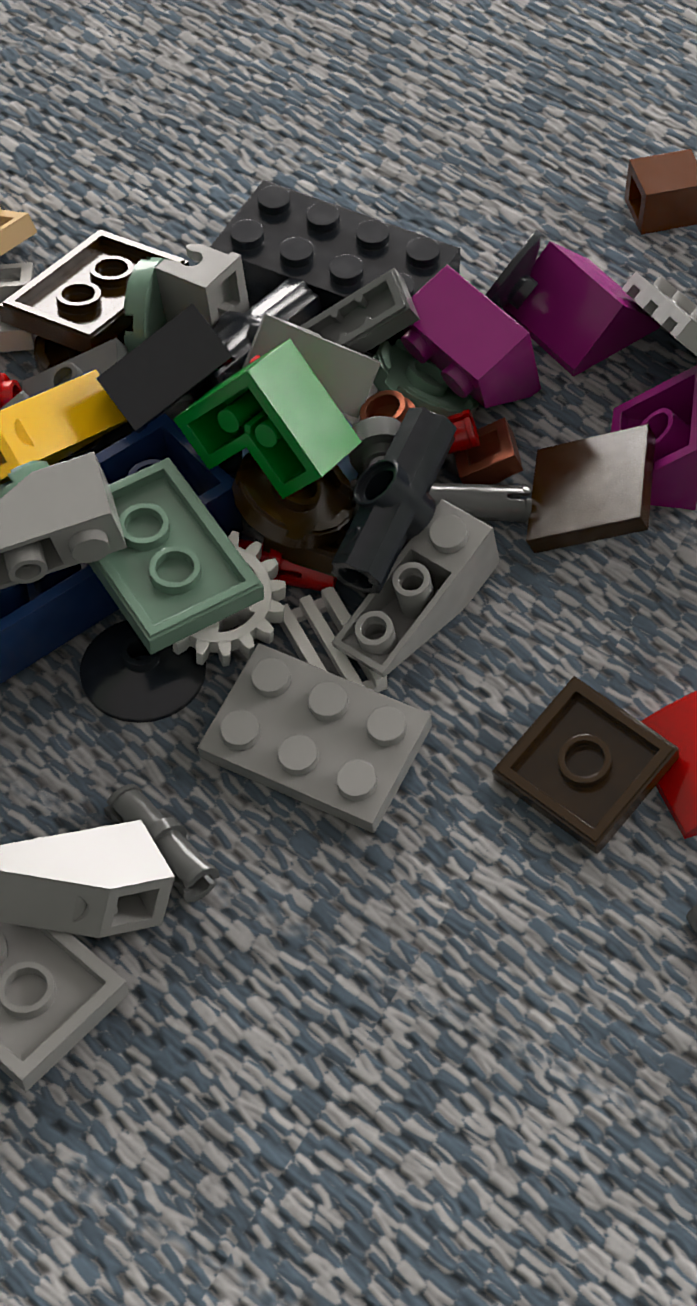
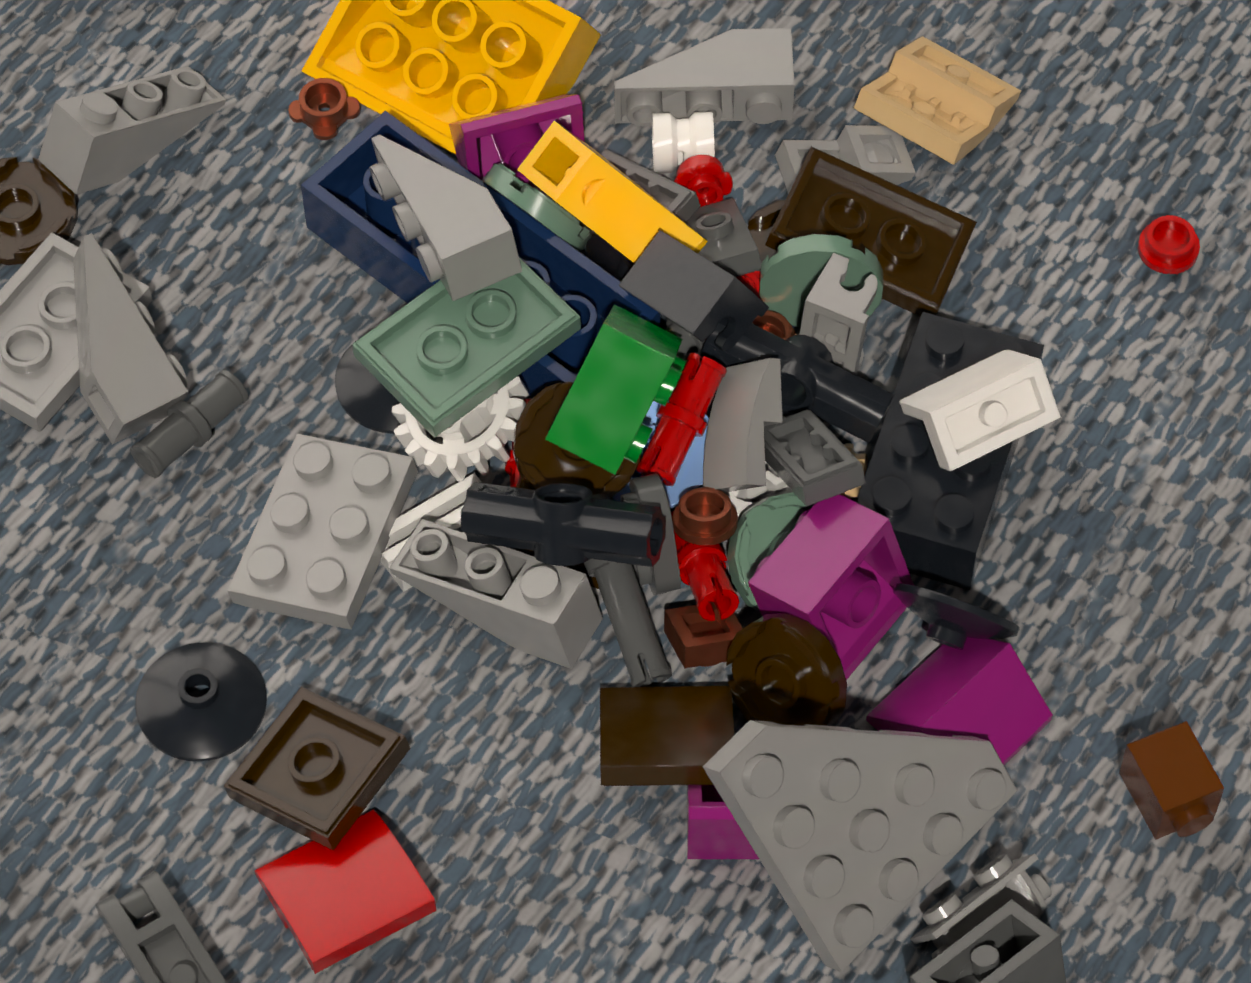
camera: 80 degrees right, 5 degrees up
(159, 121) = (1169, 245): none -> red plate
(327, 202) = (983, 407): none -> white panel
(479, 892) = (203, 725): none -> black dish
(555, 389) = (786, 673): none -> dark brown tile

